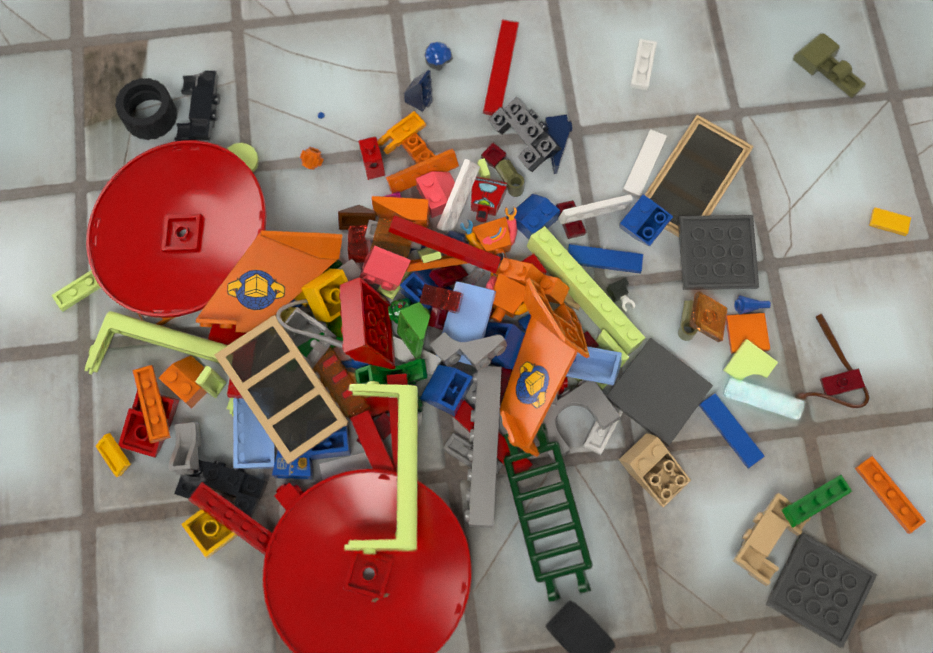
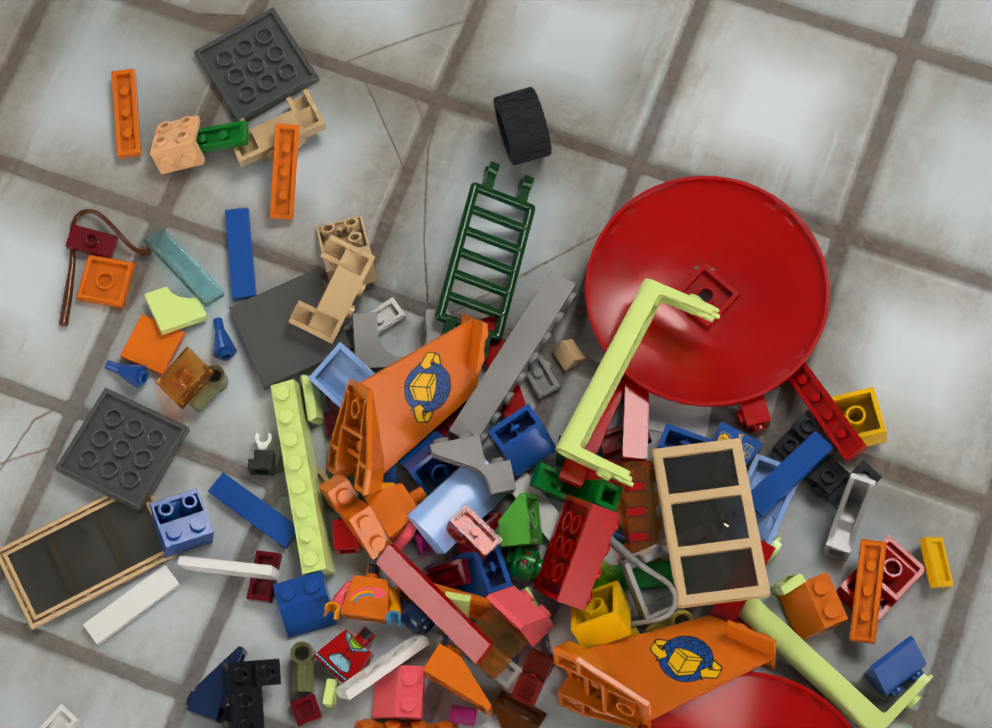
camera: 145 degrees left, 0 degrees up
(115, 365) = (896, 667): none -> blue slope
(241, 458) = (790, 473): none -> blue tile
(449, 477) = (568, 354): none -> tan slope
(637, 424) = (340, 292): none -> tan bracket
(698, 356) = (223, 345): none -> blue cone
(740, 504) = (284, 171): none -> orange plate
(812, 361) = (106, 281): none -> orange tile
(837, 487) = (176, 145): none -> light nougat bracket

